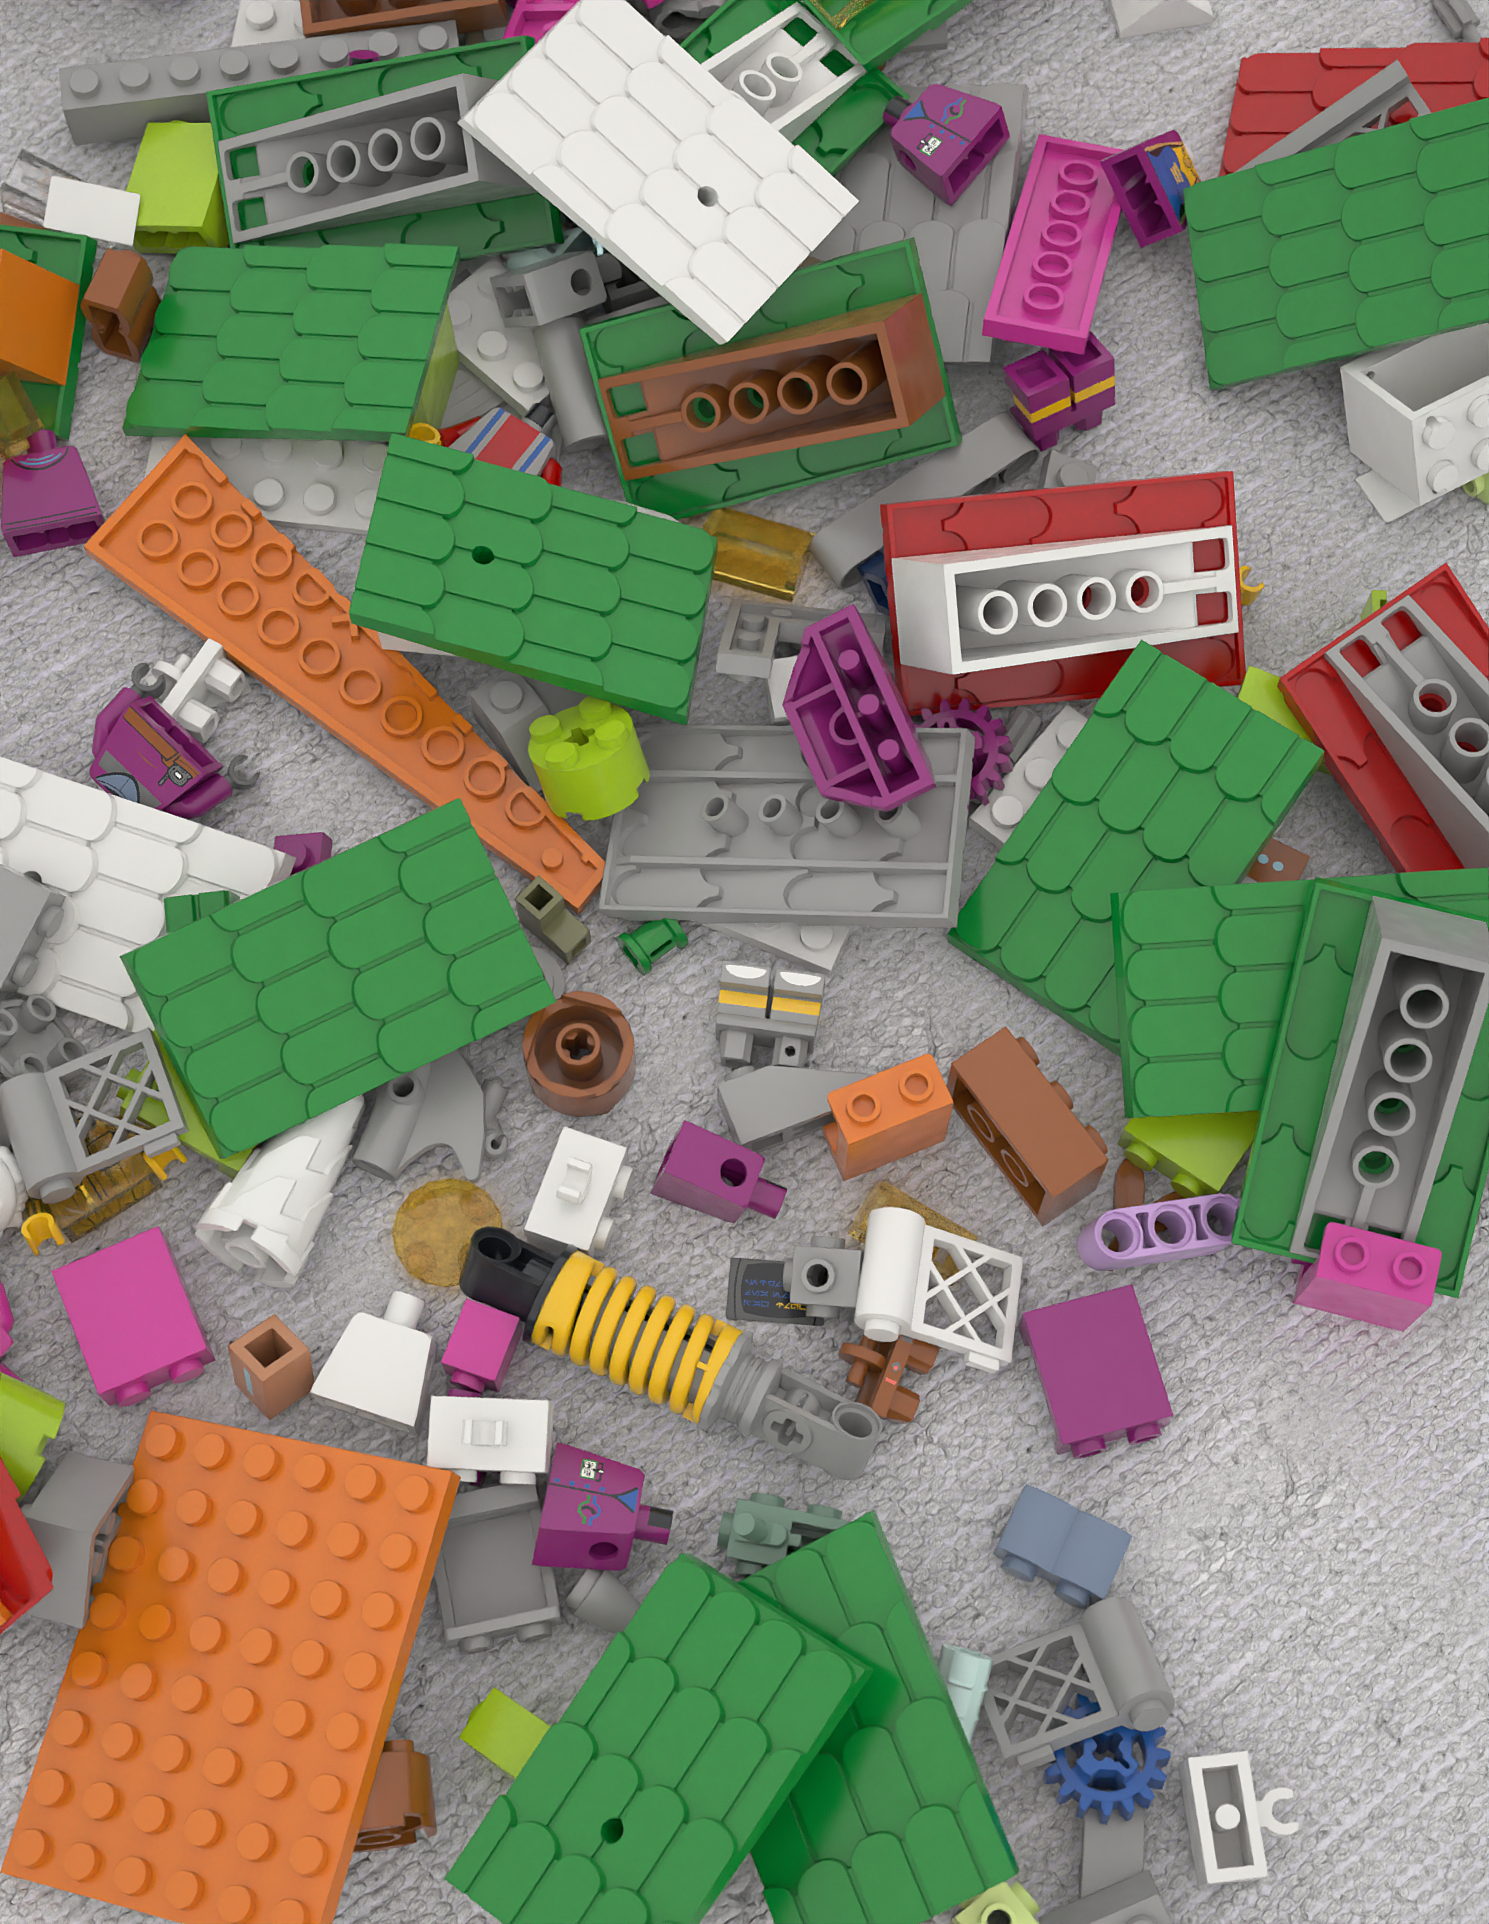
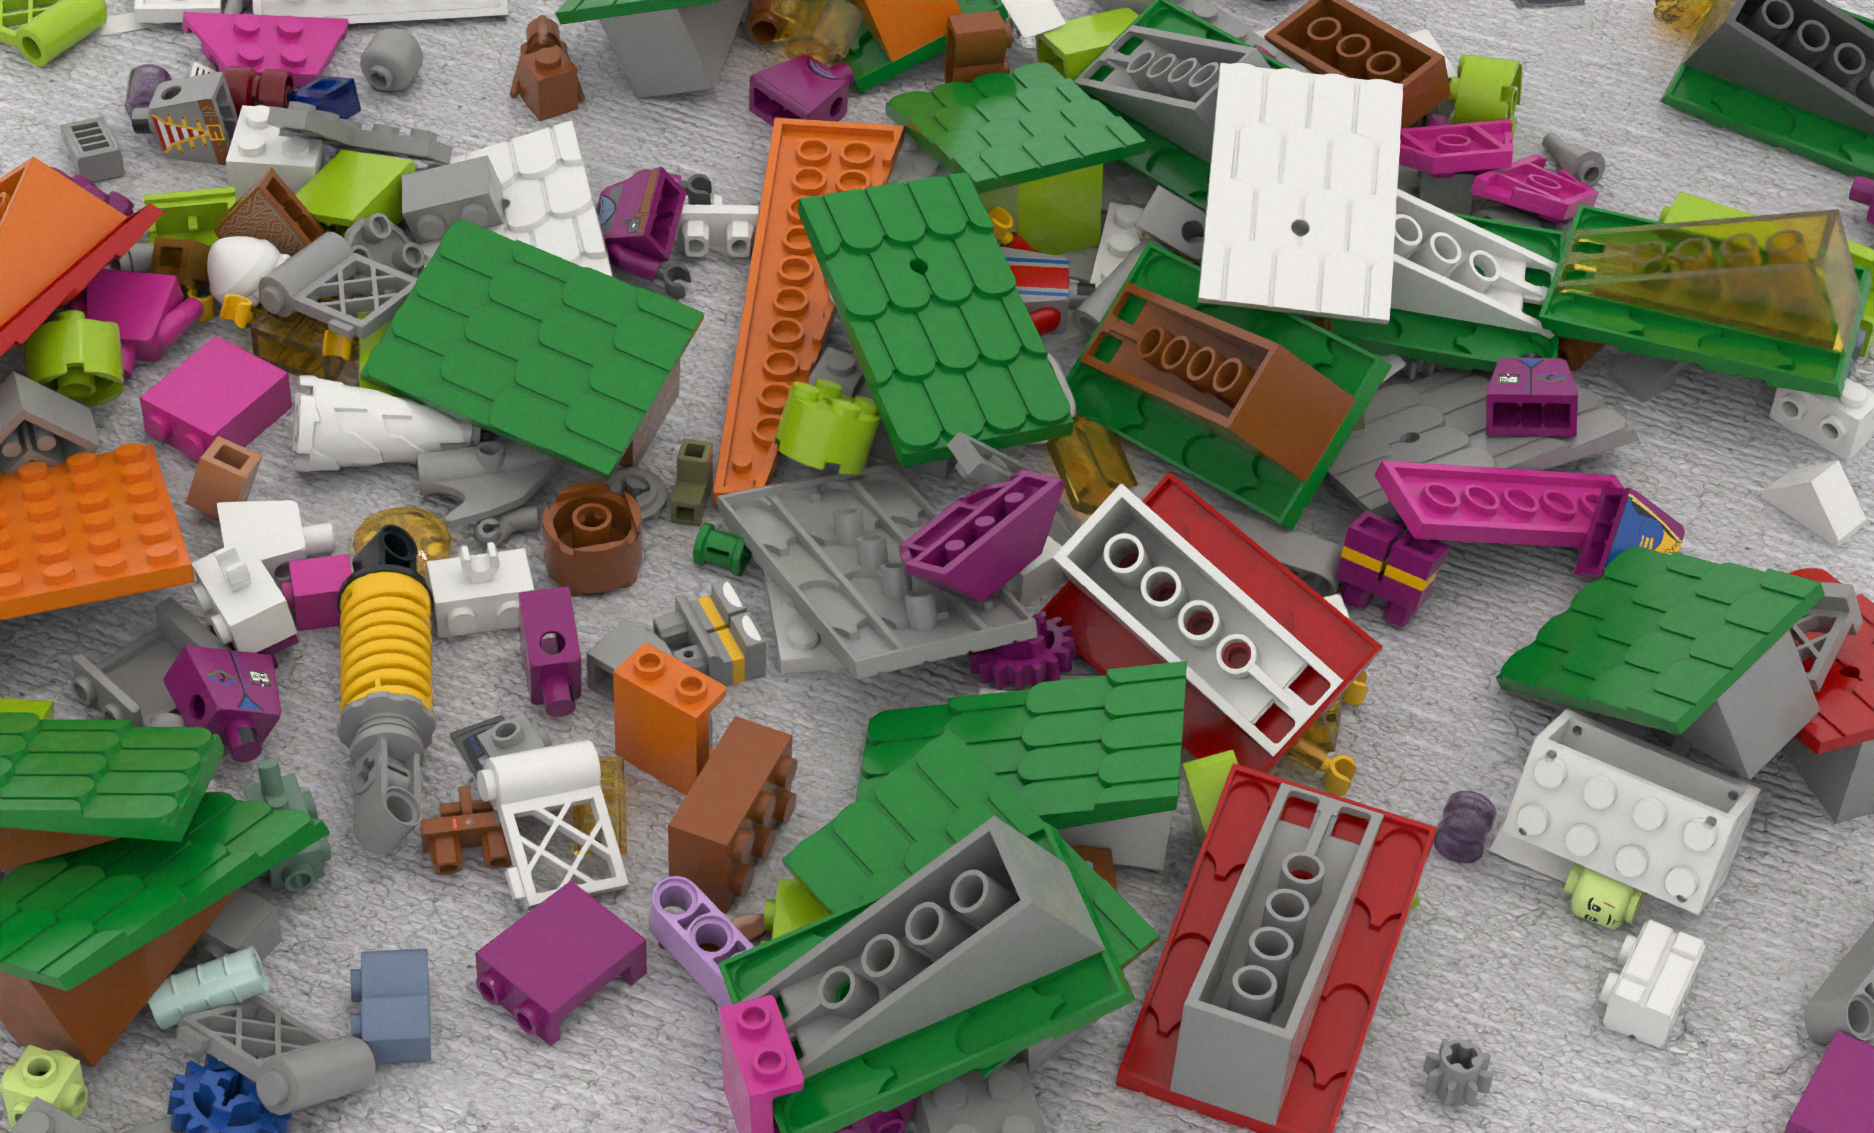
camera: 55 degrees right, 25 degrees down
(1369, 527) = (1464, 827): none -> clear purple wheel

